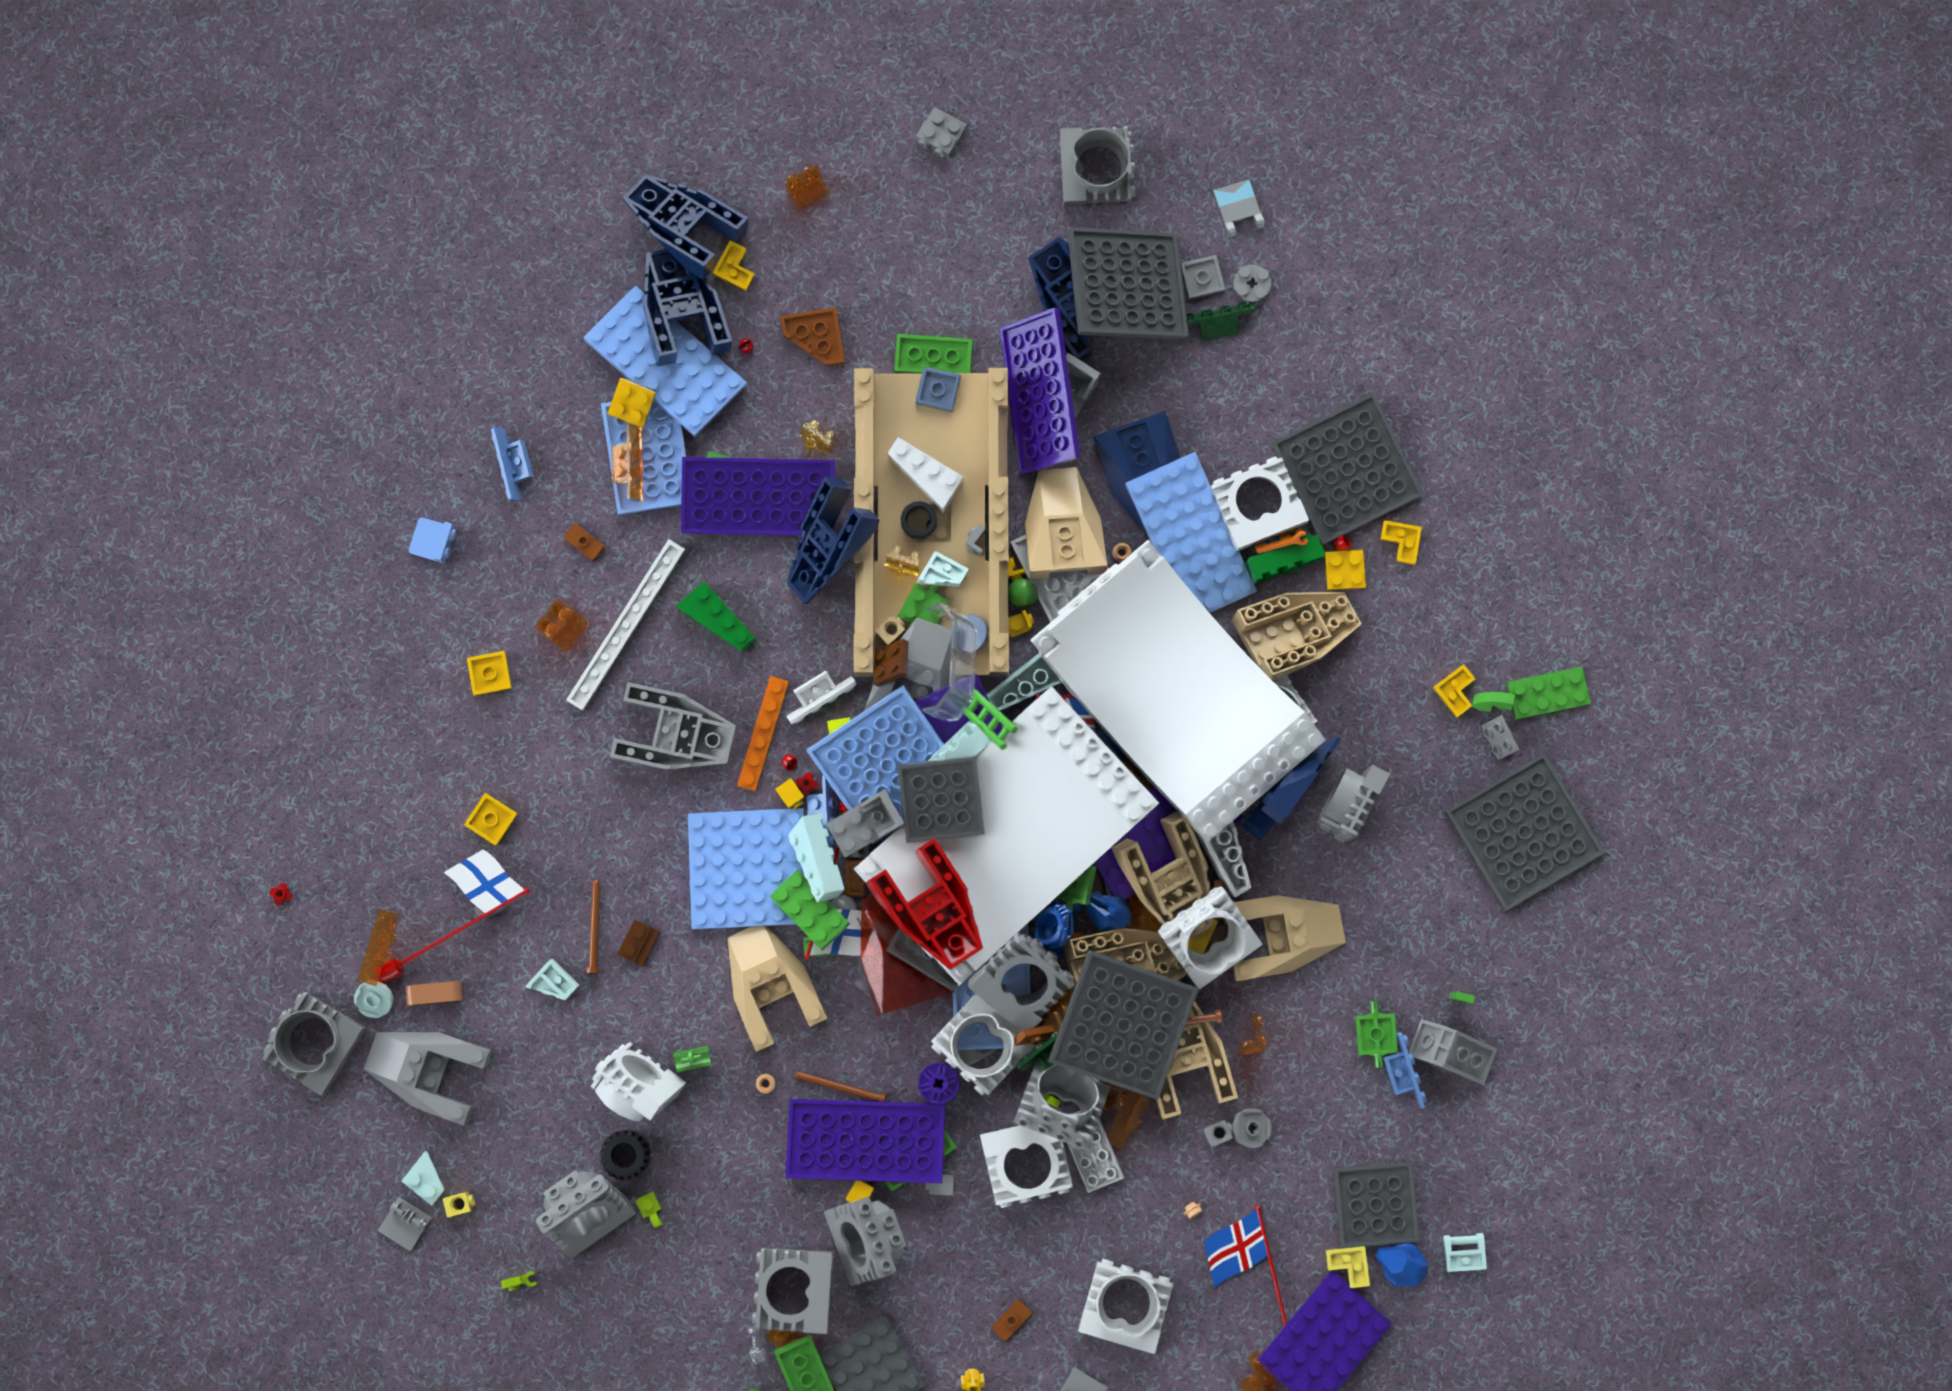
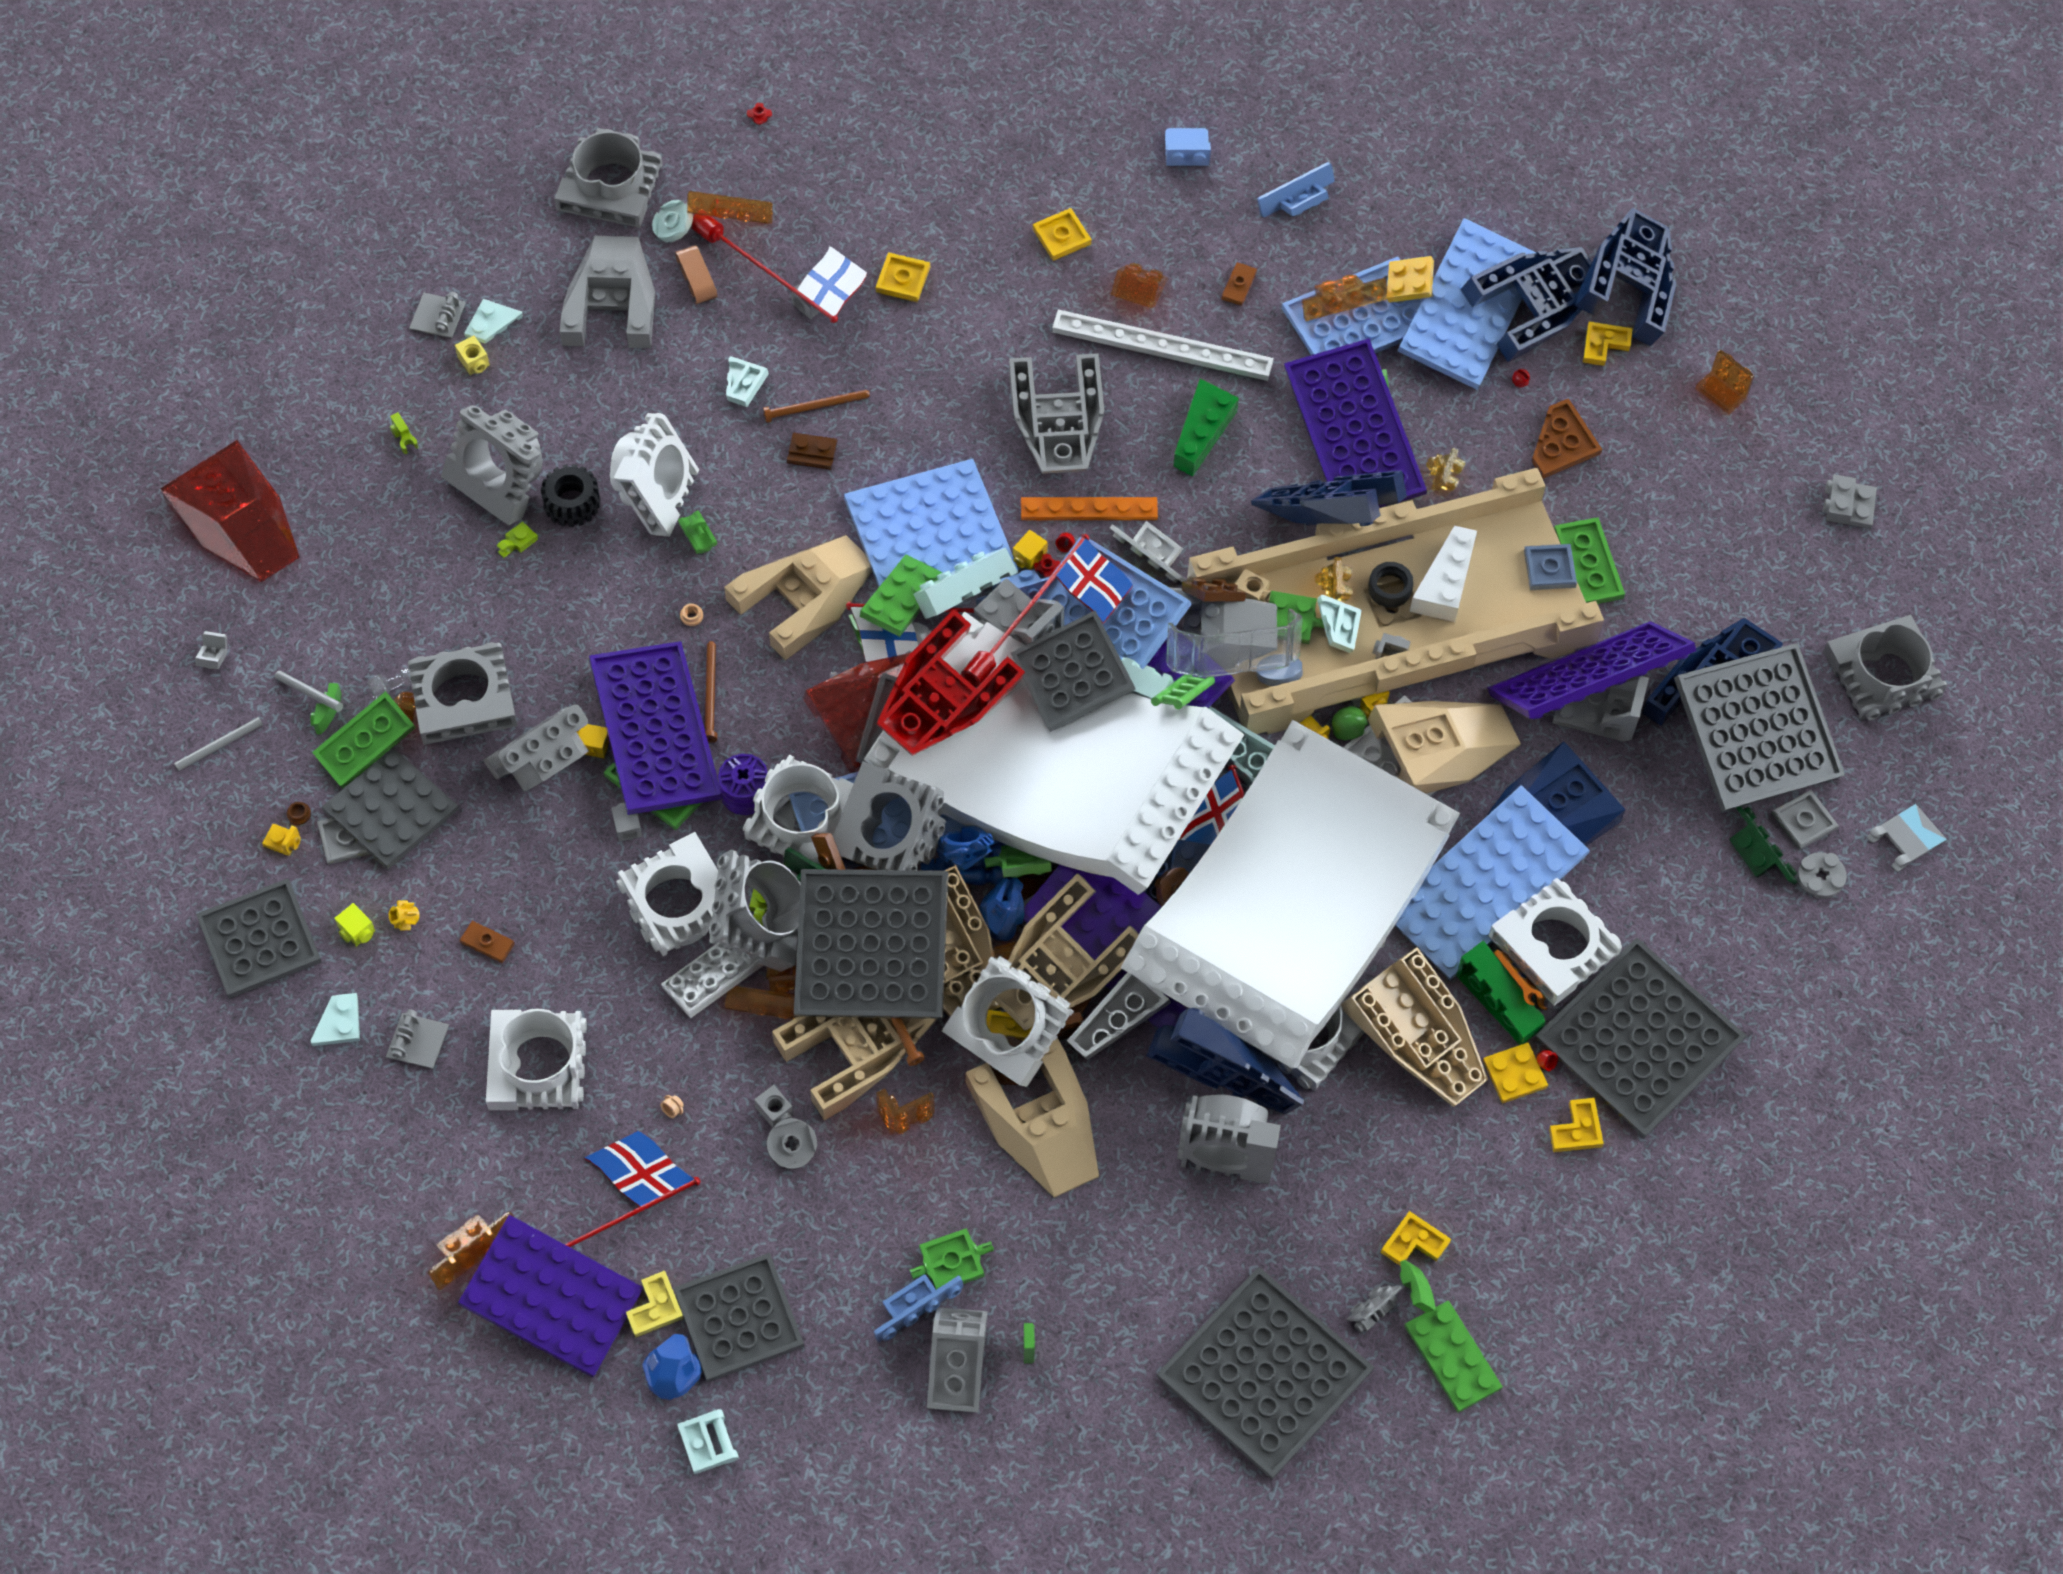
camera: 70 degrees right, 20 degrees down
(855, 759) = (1087, 578): none -> flag

